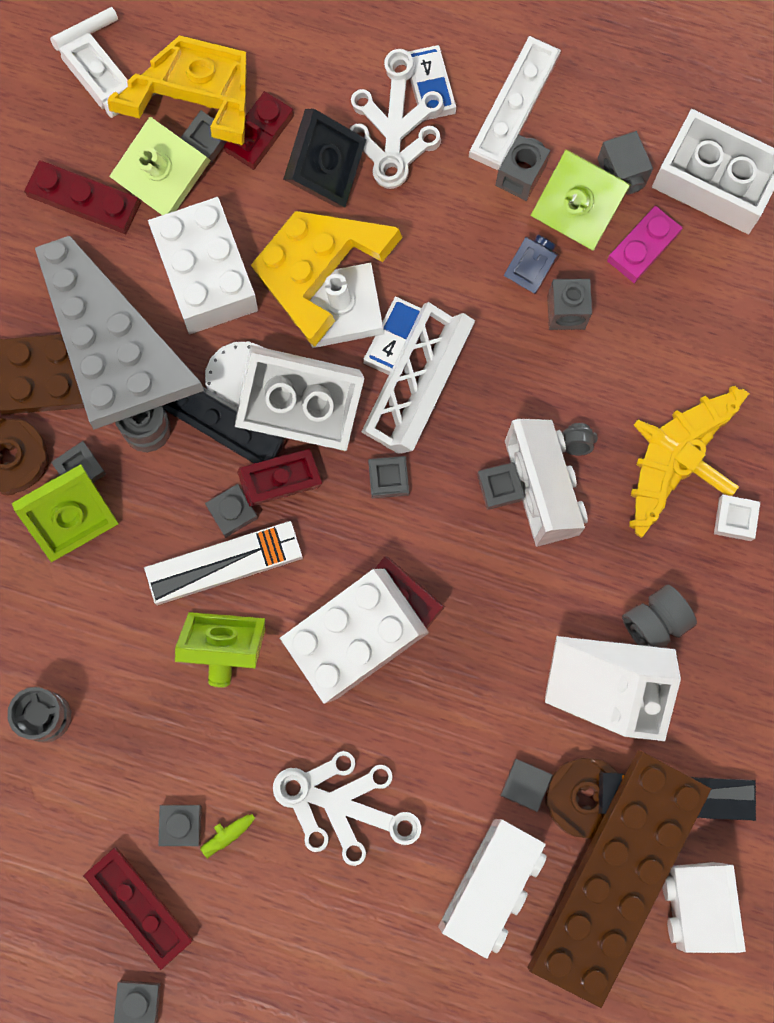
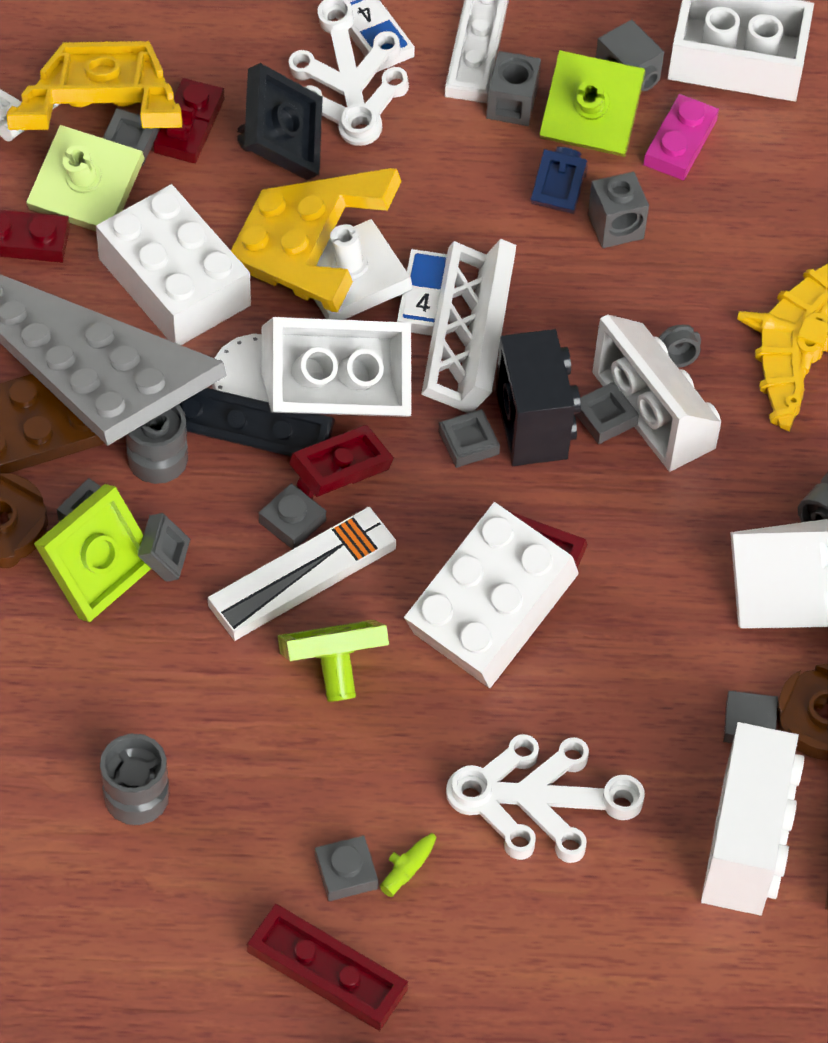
camera: 15 degrees left, 20 degrees down
(122, 516) = (164, 547): none -> dark grey tile
(445, 465) = (536, 397): none -> black brick

